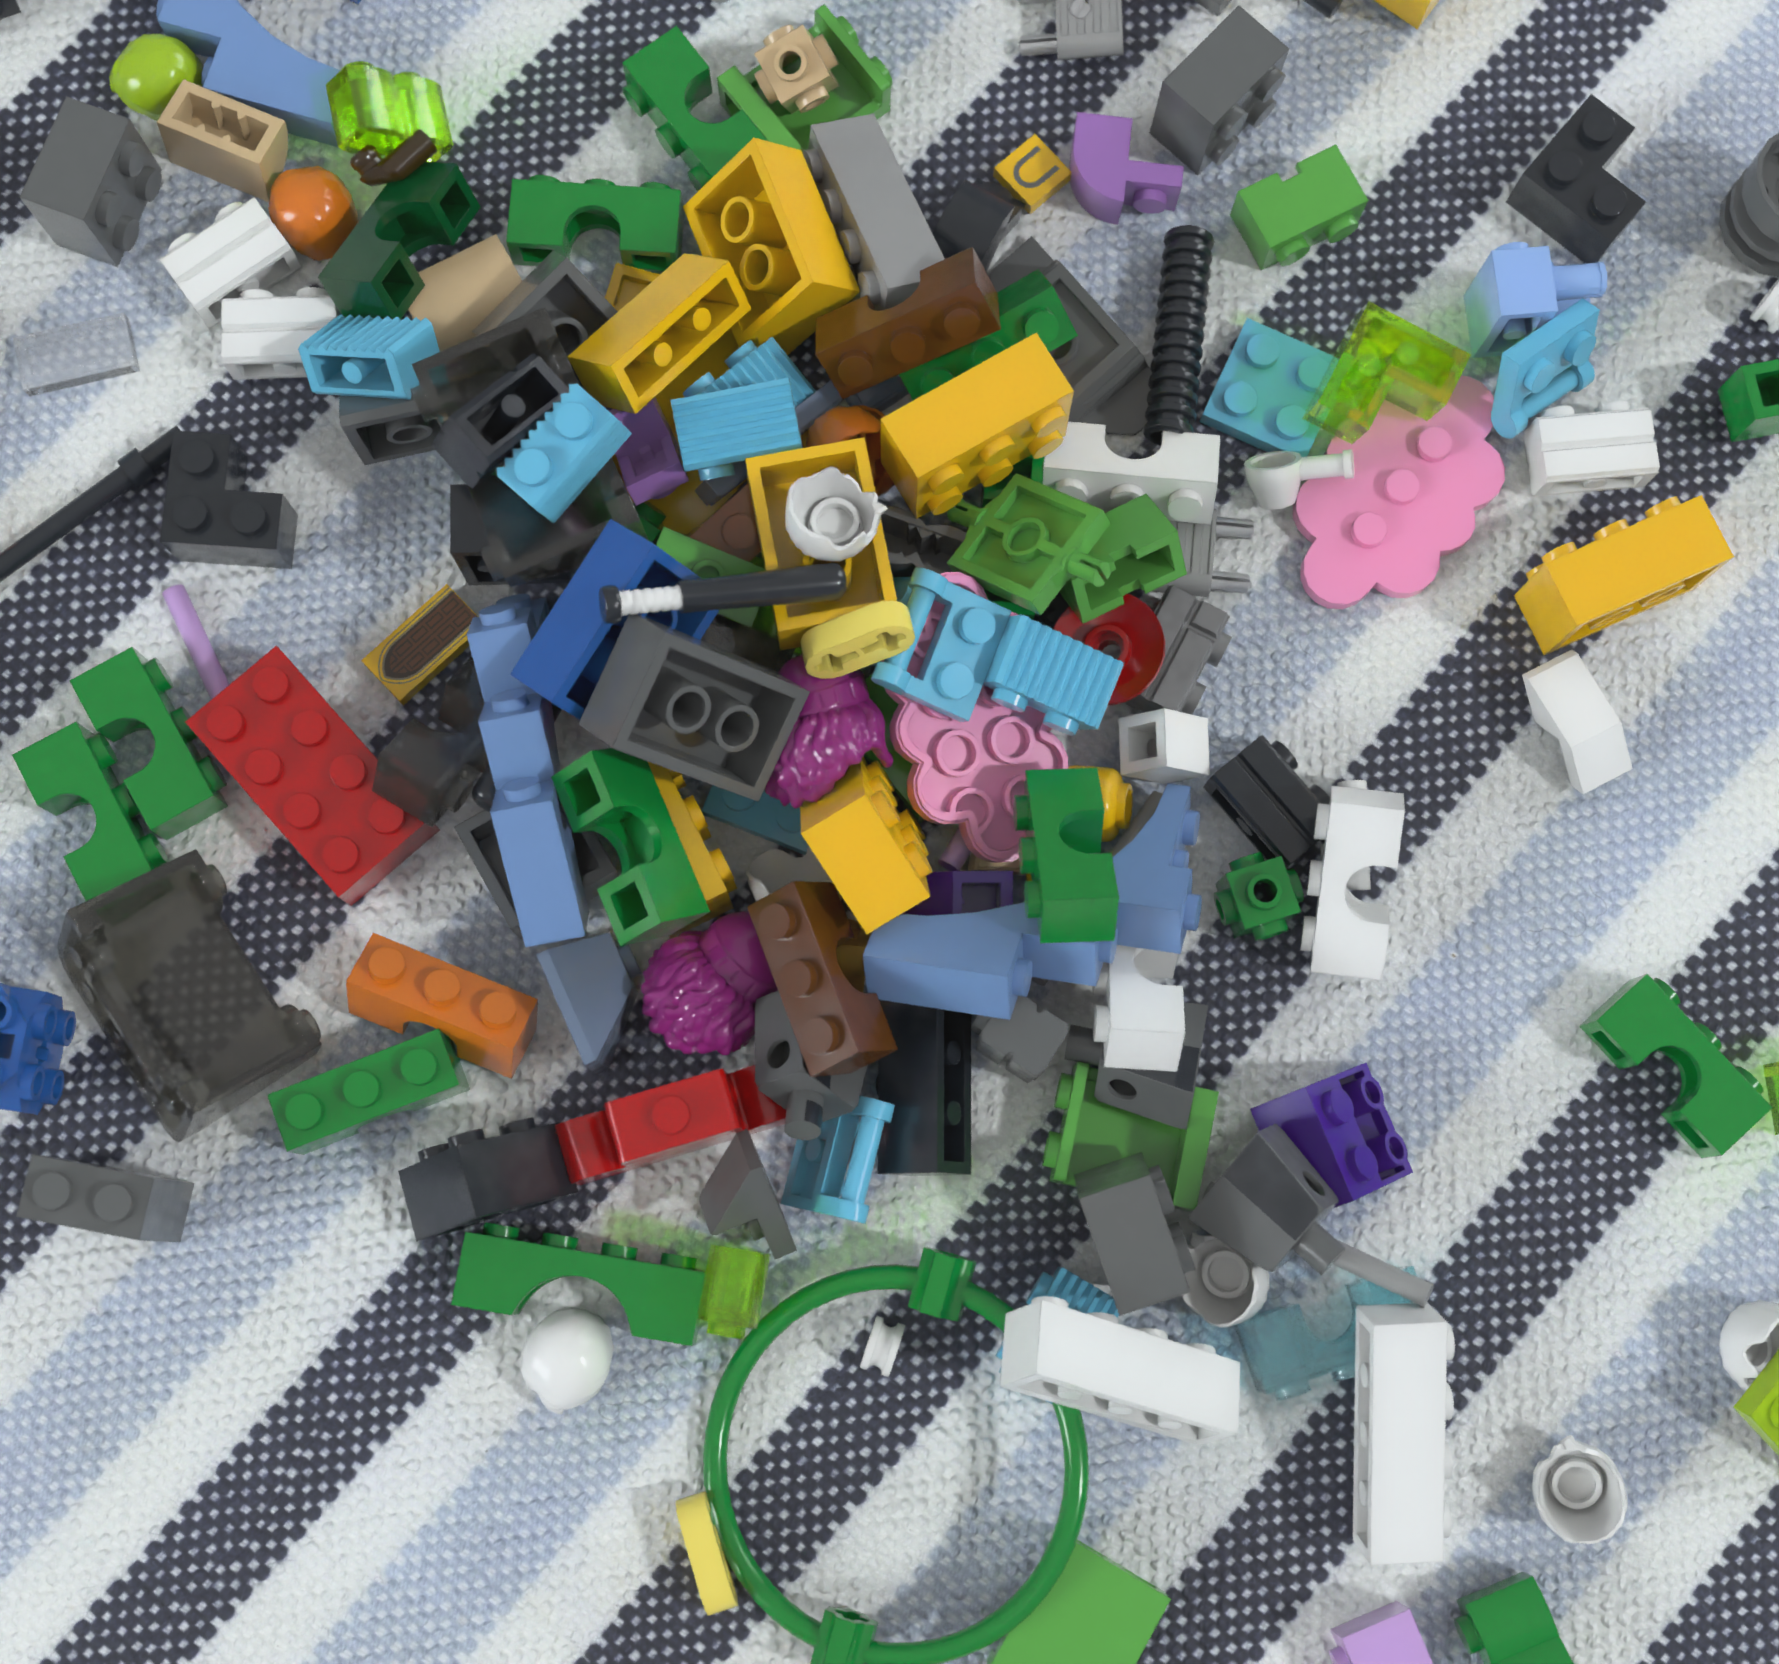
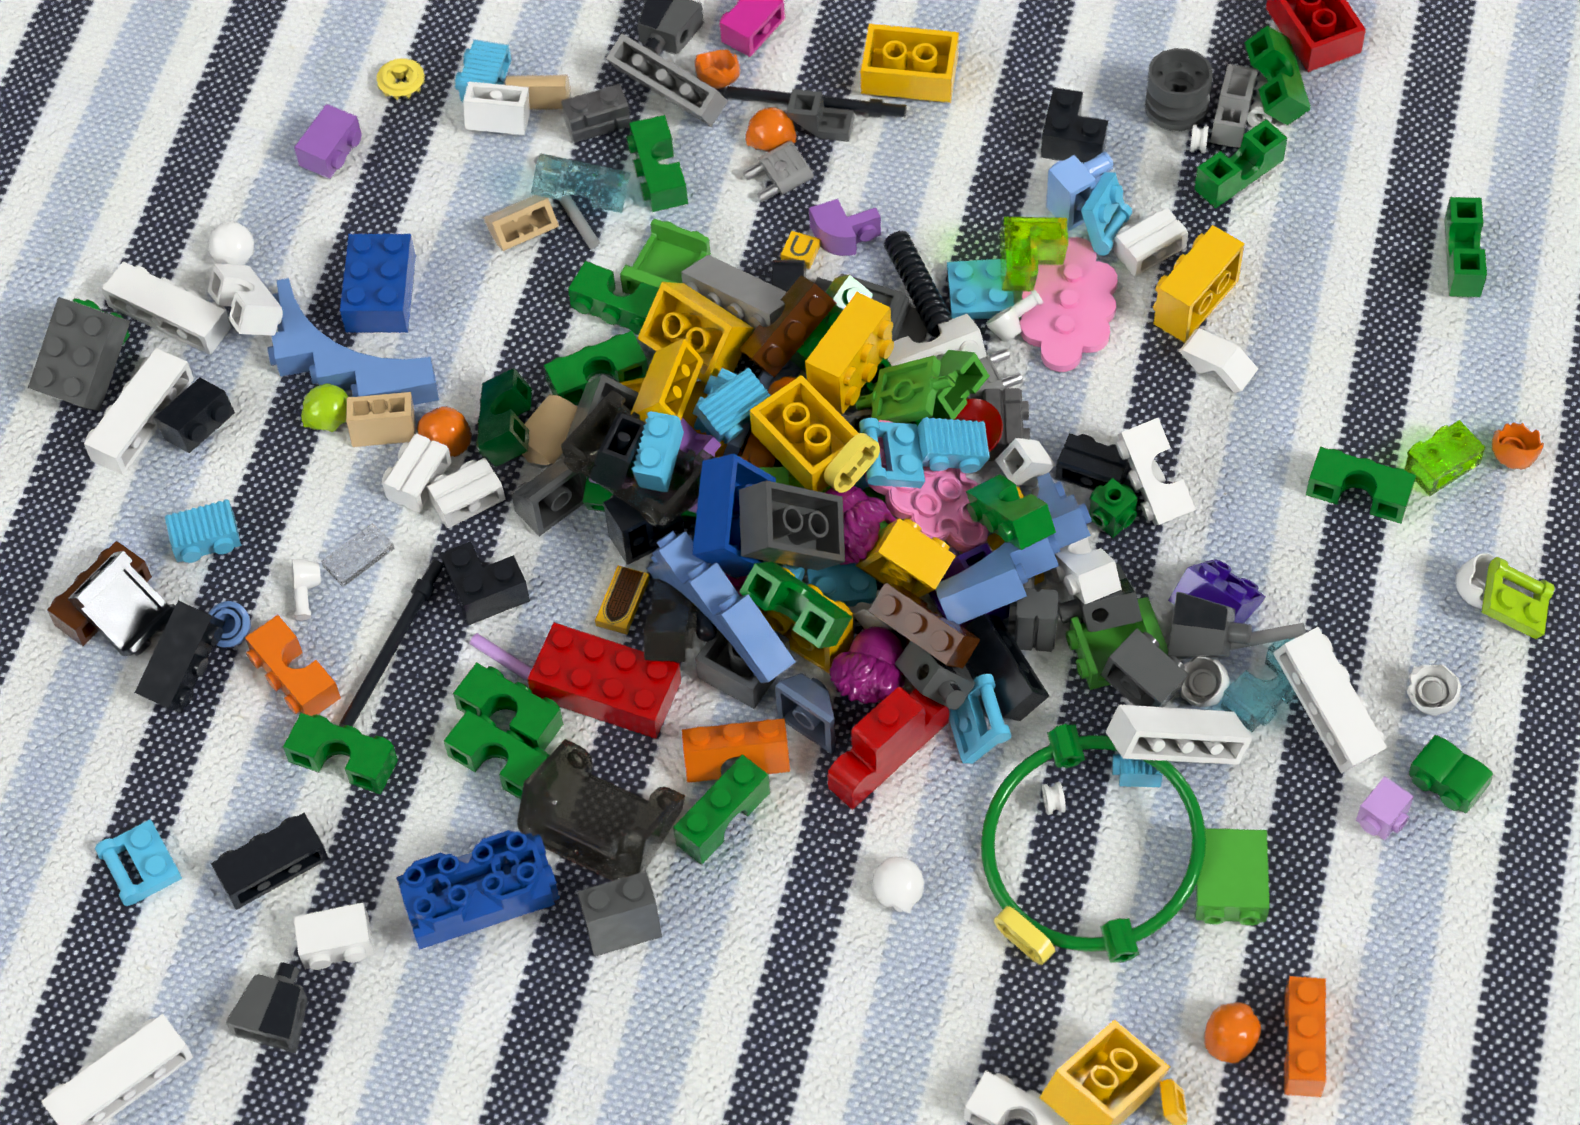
camera: 20 degrees left, 20 degrees down
(92, 182) = (329, 464): dark grey brick -> none
(367, 356) = (526, 469): medium azure brick -> none
(385, 109) = (461, 365): clear neon green brick -> none
(397, 164) = (482, 383): dark brown arm -> none
(484, 1178) = (804, 814): black brick -> none
(504, 1273) = (925, 831): green arch -> none
(733, 1290) = (963, 799): clear neon green brick -> none
(743, 590) = (782, 460): black piece -> none
(743, 1194) = (945, 752): dark grey slope -> none
(810, 83) = (660, 261): tan brick -> none
(831, 515) = (809, 410): white hair -> none
(1219, 91) = (873, 167): dark grey brick -> none
(1290, 216) = (944, 204): bright green brick -> none

